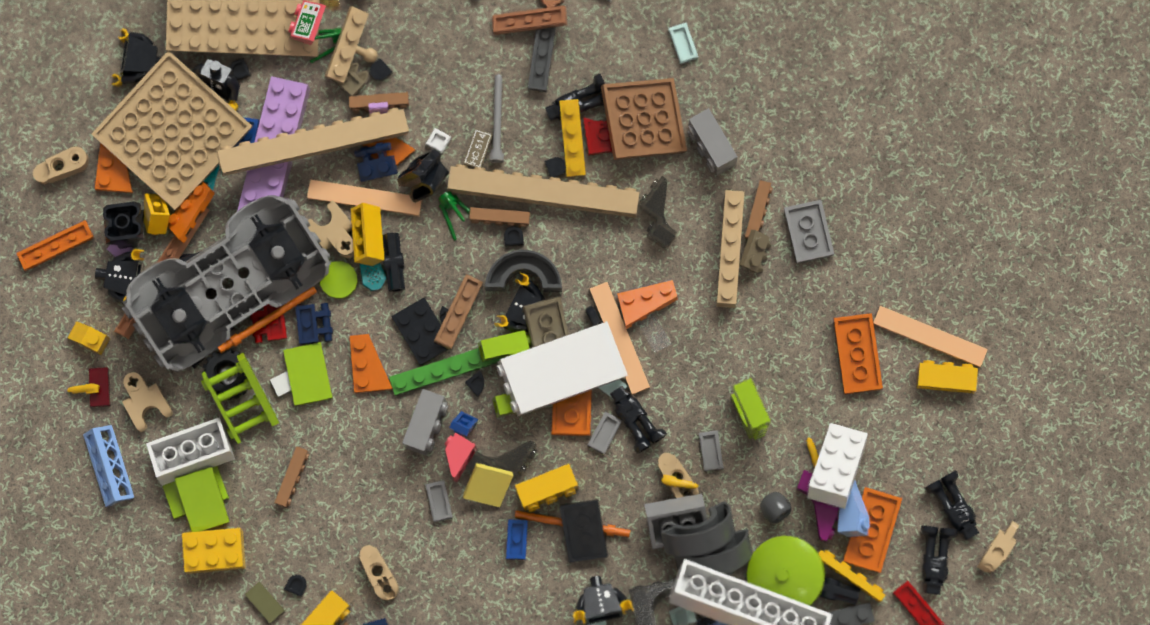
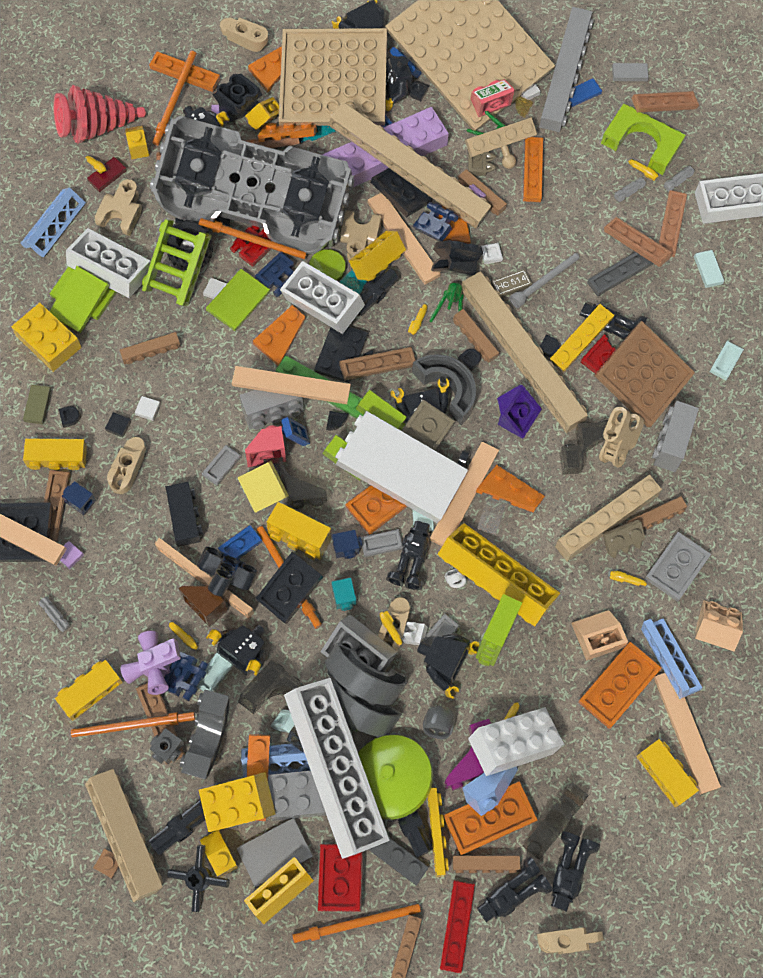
camera: 40 degrees right, 10 degrees down
(35, 360) = (90, 114): none -> coral plant
(94, 307) = (173, 100): none -> orange bar
(198, 57) = (414, 70): none -> blue tile
(324, 168) = (400, 192): none -> black plate
(336, 553) = (118, 424): none -> black tile
(342, 519) = (147, 408): none -> white tile
(368, 308) = (322, 297): none -> white brick
(380, 71) = (504, 177): black tile -> none
(394, 43) = (533, 169): none -> orange plate
(429, 397) = (291, 385): none -> light nougat tile
(448, 252) = (416, 324): none -> yellow piece
(456, 561) = (183, 514): none -> black brick
(522, 587) = (201, 576): none -> light nougat tile
(532, 566) = (225, 571): none -> black beam
(544, 602) = (204, 603): none -> reddish brown slope
(585, 460) = (346, 544): none -> dark blue brick
(589, 240) = (517, 411): none -> dark purple slope
(622, 494) = (343, 594): none -> teal brick
(677, 183) = (620, 436): none -> tan piece
(678, 401) = (454, 576): none -> white tile
(695, 467) = (414, 633): none -> white tile
(705, 369) = (498, 573): none -> yellow brick
(734, 462) = (446, 658): none -> black torso
(781, 279) = (623, 577): none -> yellow piece
(809, 335) = (599, 634): none -> light nougat slope
(868, 303) = (667, 661): none -> light blue fence
(877, 242) = (719, 625): none -> light nougat slope
(901, 560) = (486, 864): none -> medium nougat piece
(913, 485) = (555, 821): none -> clear smoke arch

